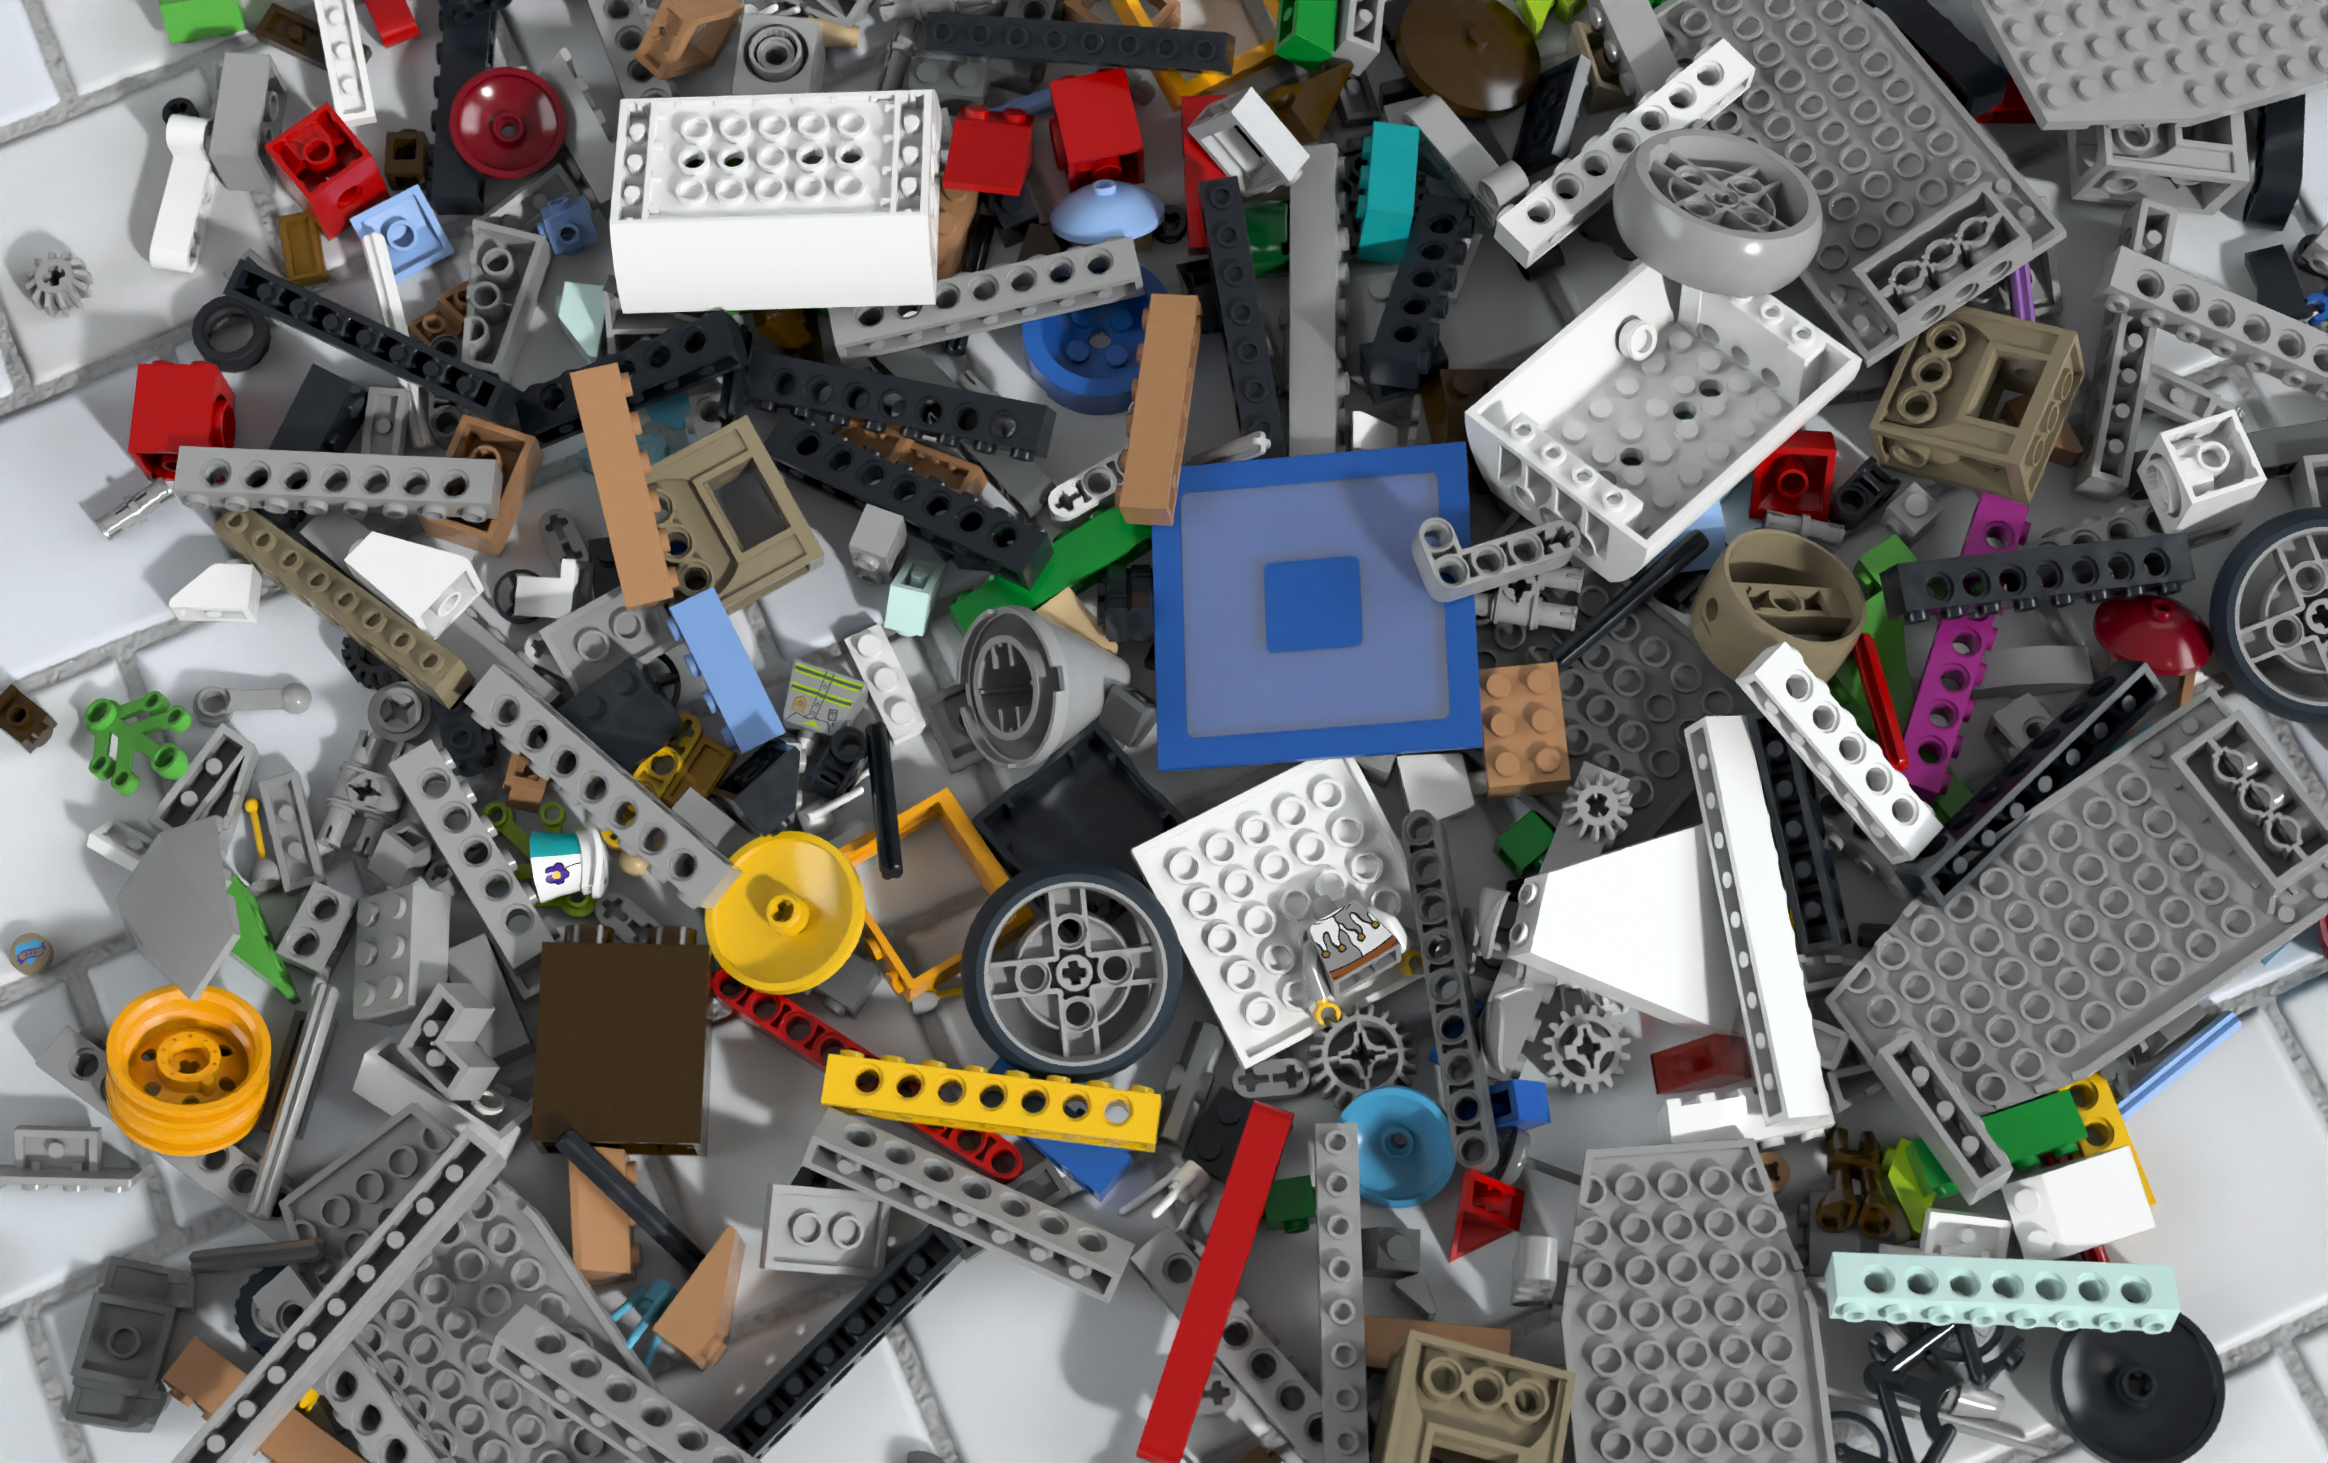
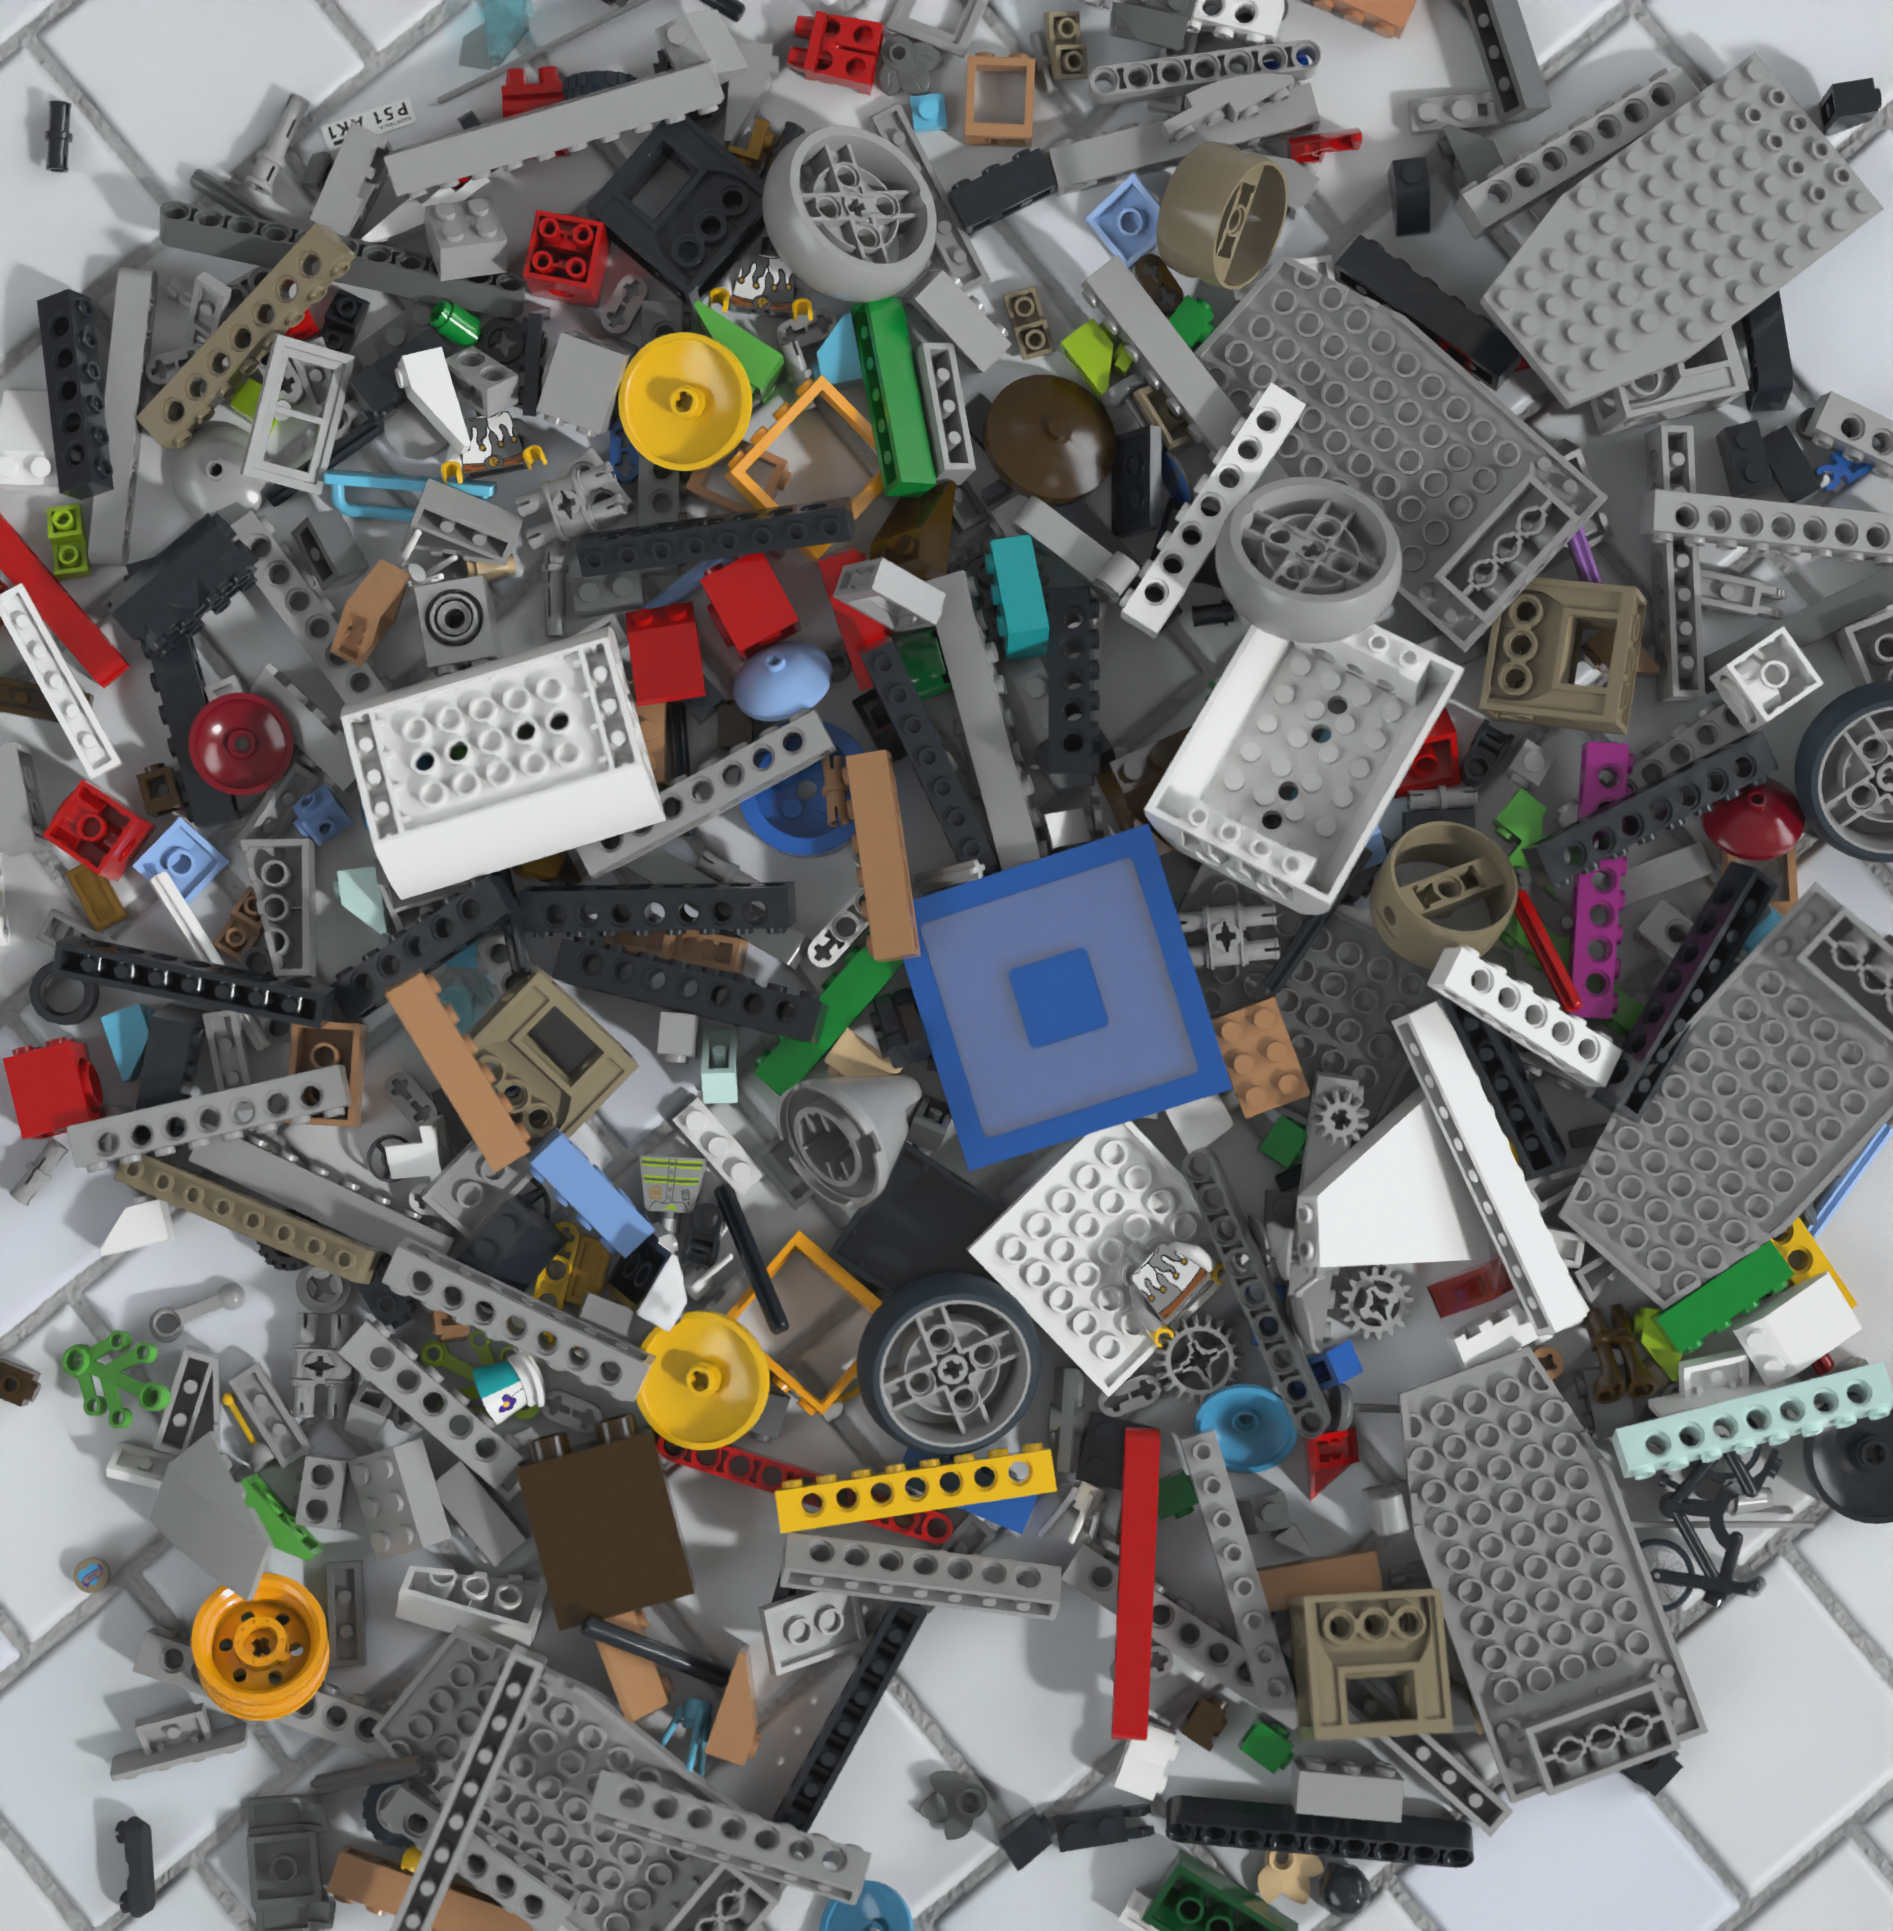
camera: 15 degrees left, 15 degrees up
(277, 390) = (128, 1036): none -> medium azure slope
(292, 1102) = (352, 1643): light grey axle -> none
(415, 580) = (303, 1191): white slope -> none
(444, 1042) = (462, 1569): light grey brick -> none
(1128, 337) = (835, 791): none -> medium nougat pin
(1497, 553) = (1204, 922): light grey beam -> none
(1553, 33) = (1173, 472): none -> dark grey piece
(1596, 275) = (1213, 614): none -> black pin
(1637, 339) = (1266, 680): white tile -> none
(1897, 671) = (1548, 908): none -> dark grey piece
(1942, 1117) = (1677, 1300): light grey brick -> none
(2229, 257) = (1744, 460): none -> black brick

